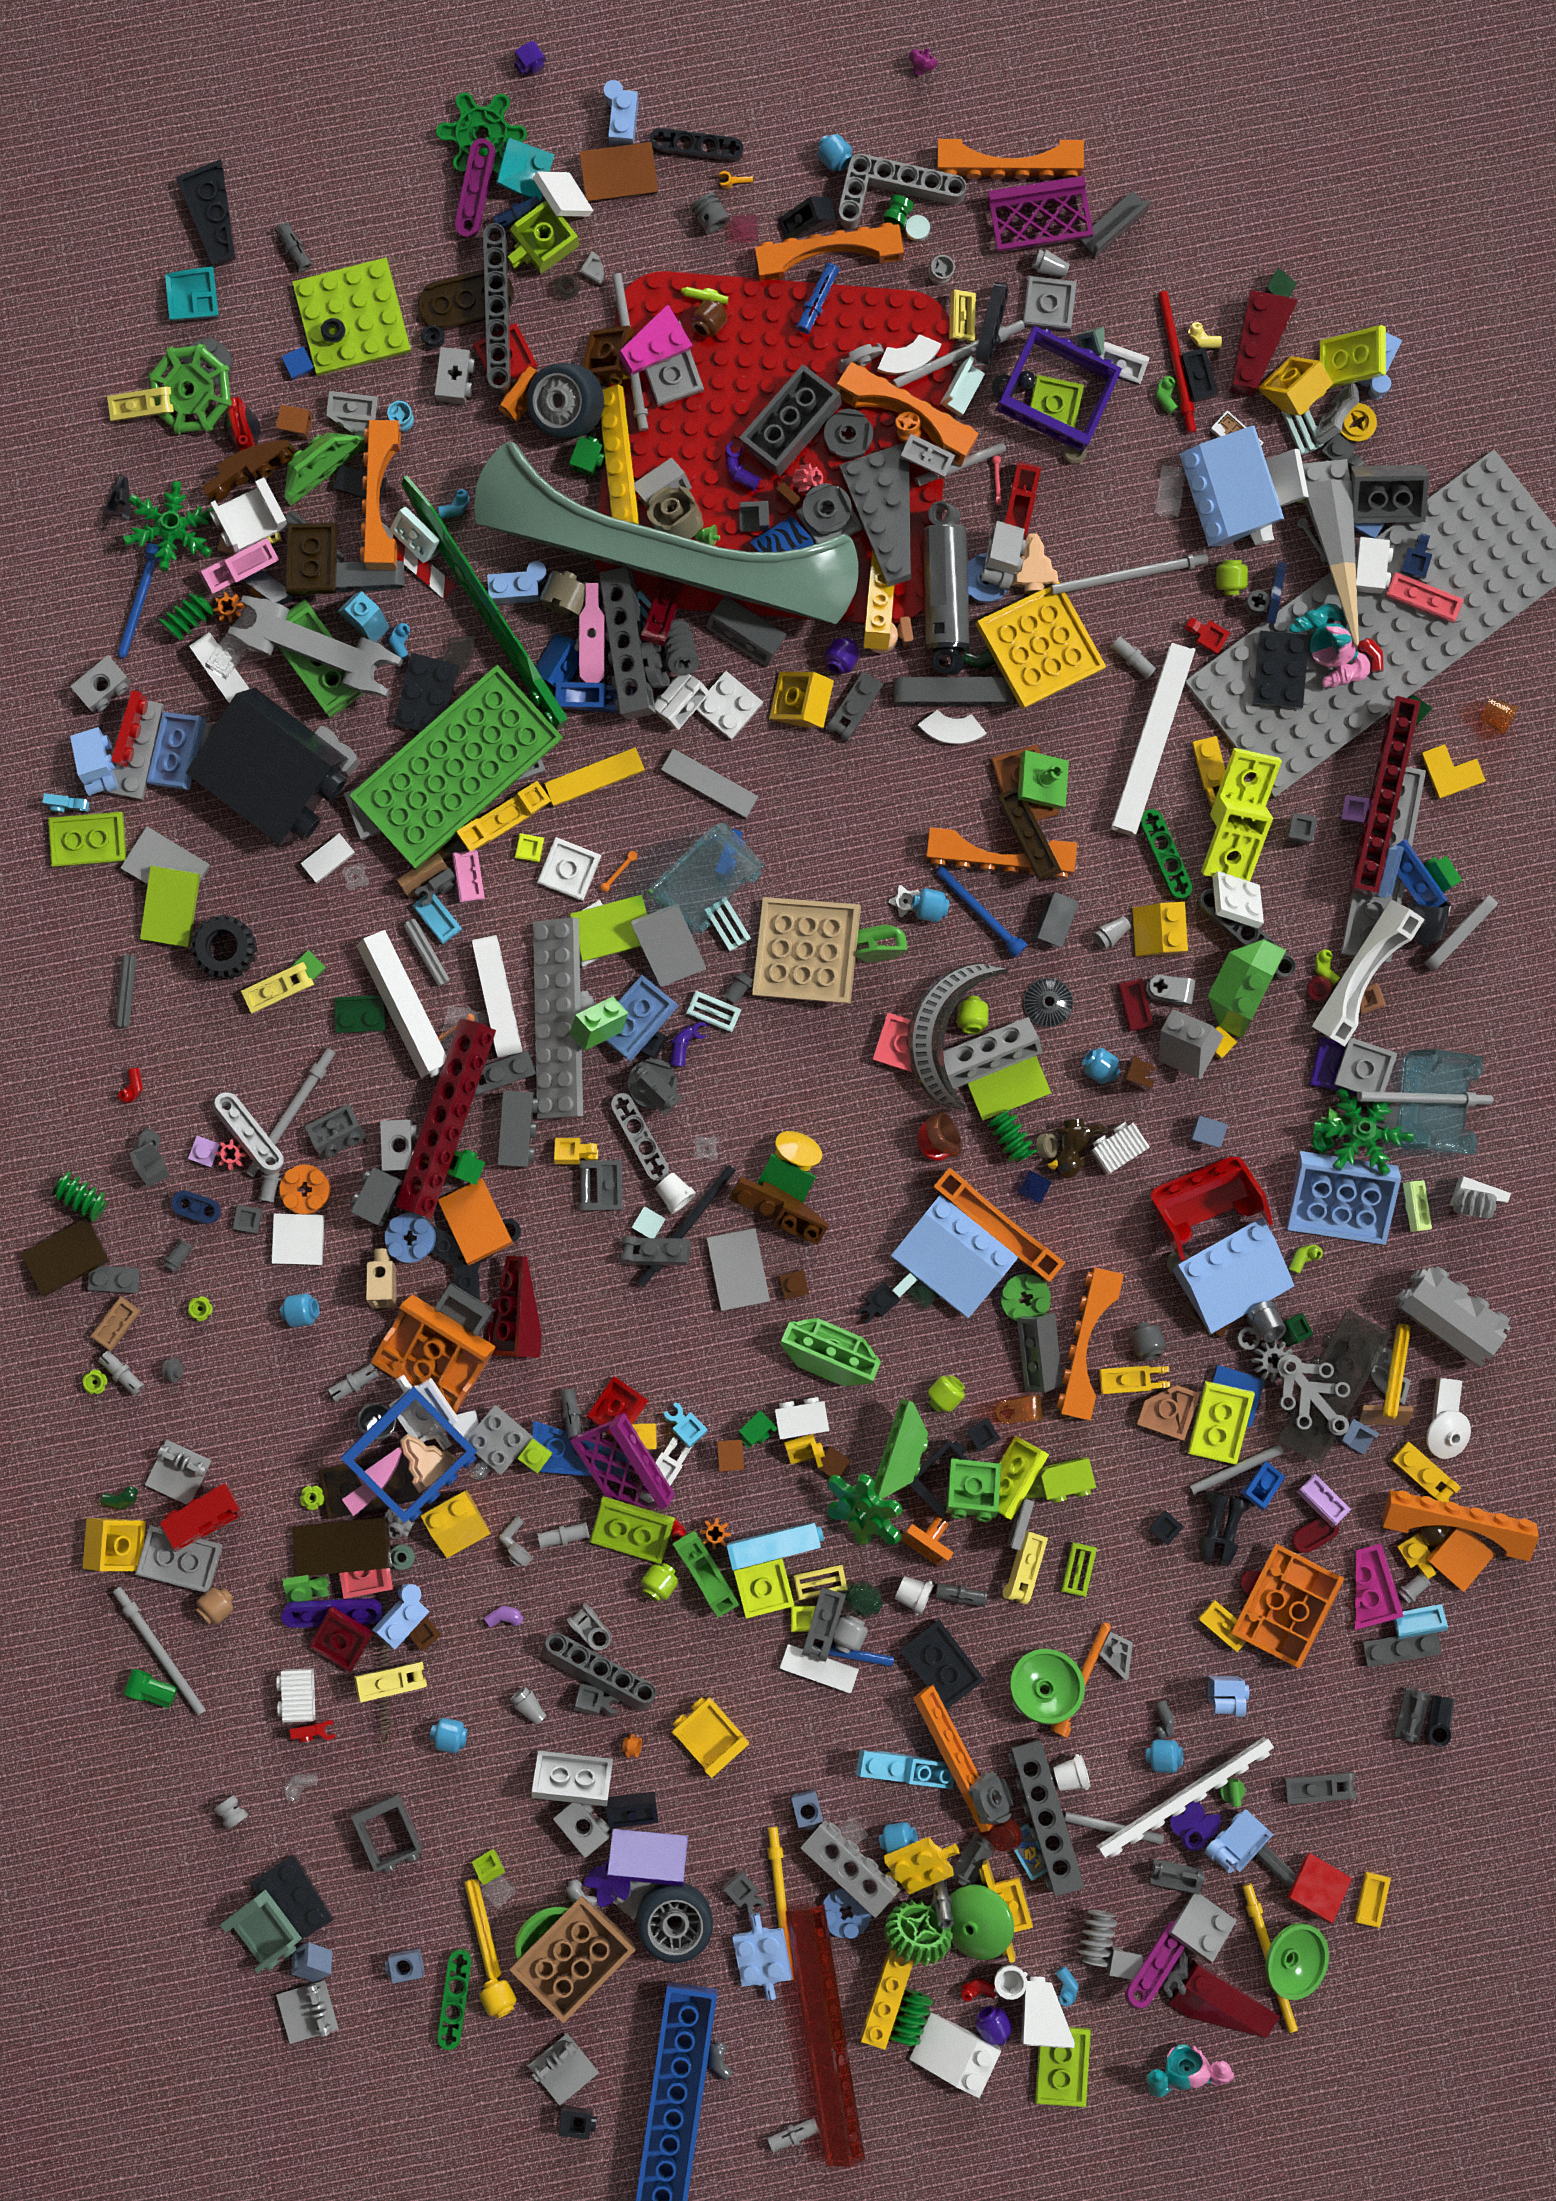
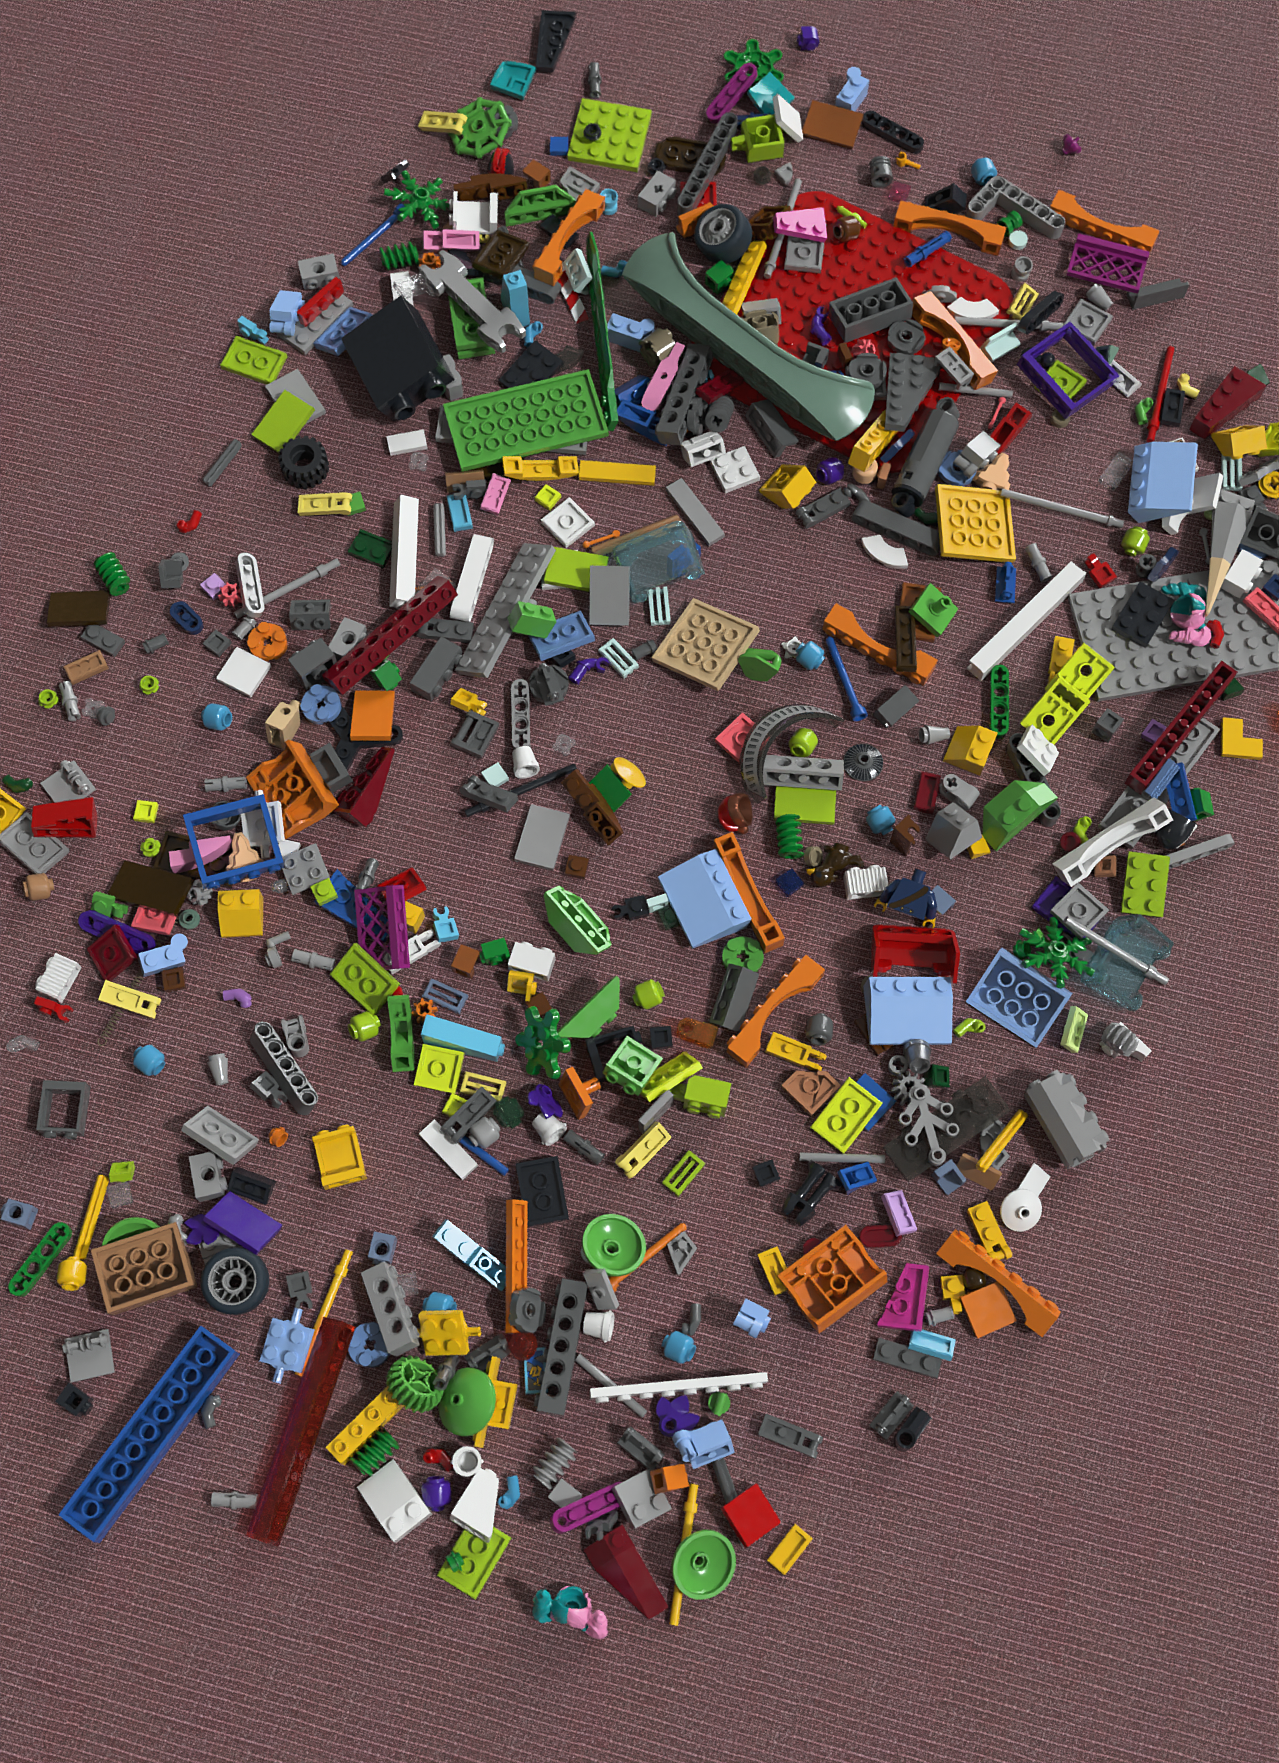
camera: 30 degrees right, 15 degrees down
(146, 1364) = (87, 711): none -> clear plate
(282, 1458) = (145, 811): none -> neon yellow tile
(657, 848) = (608, 546): none -> medium nougat axle
(748, 1502) = (429, 989): none -> sand blue tile
(884, 666) = (859, 493): none -> dark grey arm
(896, 1568) = (543, 1098): none -> dark purple plate
(906, 591) = (890, 453): none -> dark blue tile
(1048, 2083) = (455, 1561): none -> green plate
(1057, 1739) = (601, 1289): none -> light grey plate
(1107, 702) = (1005, 583): none -> blue hinge
(1178, 1148) = (910, 897): none -> dark blue torso
(1221, 1894) = (669, 1479): none -> orange brick
(1422, 1000) = (1145, 884): none -> lime plate

